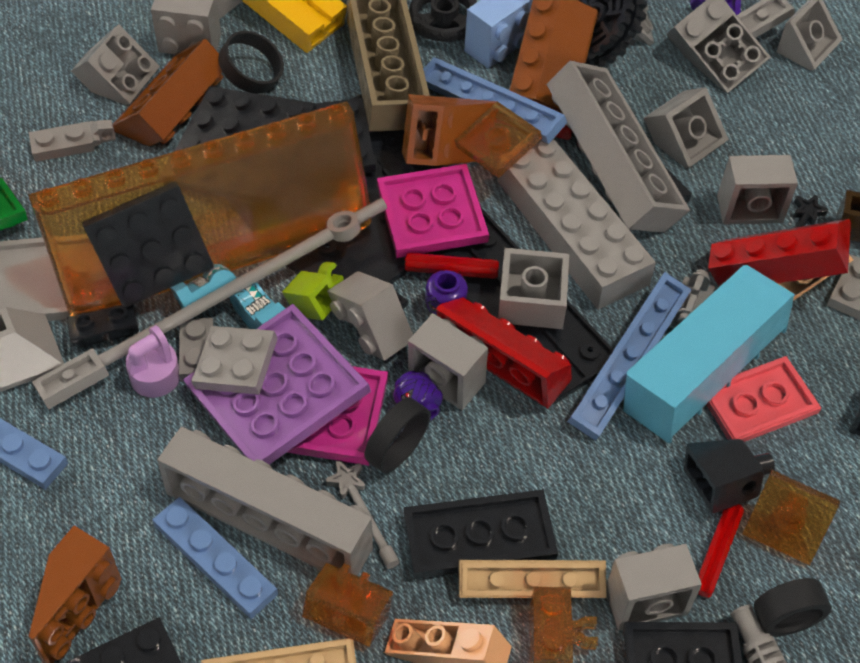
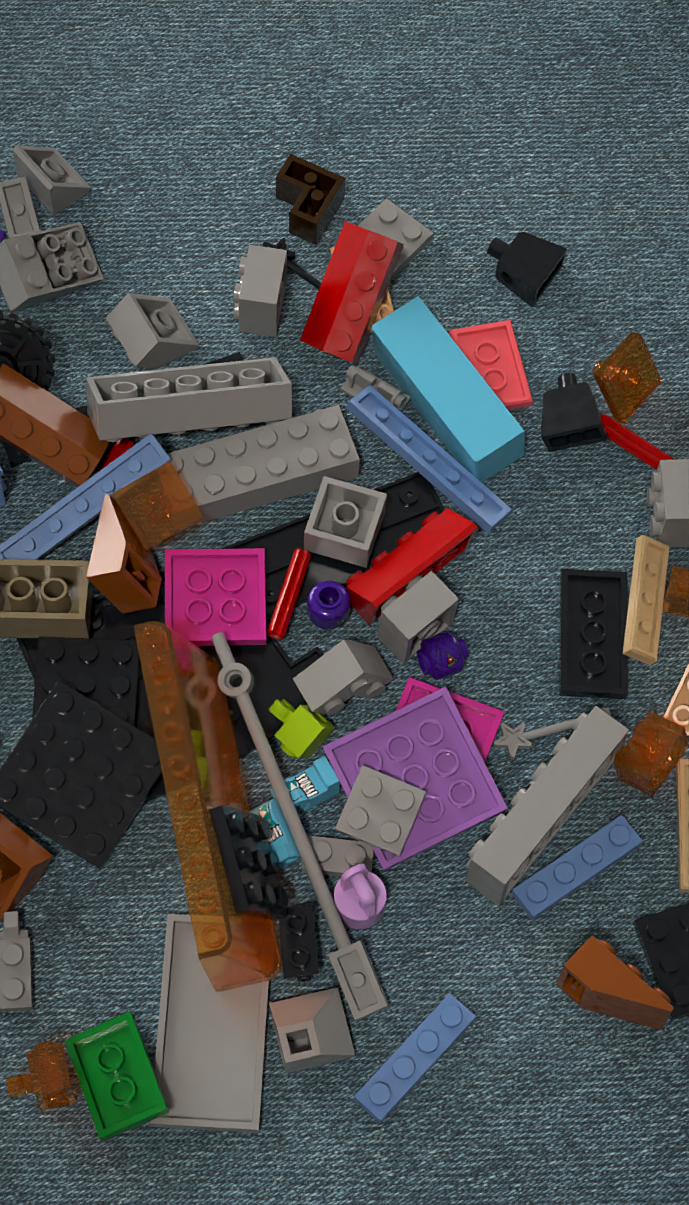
camera: 80 degrees left, 10 degrees up
(378, 449) = (511, 689): black tyre -> none

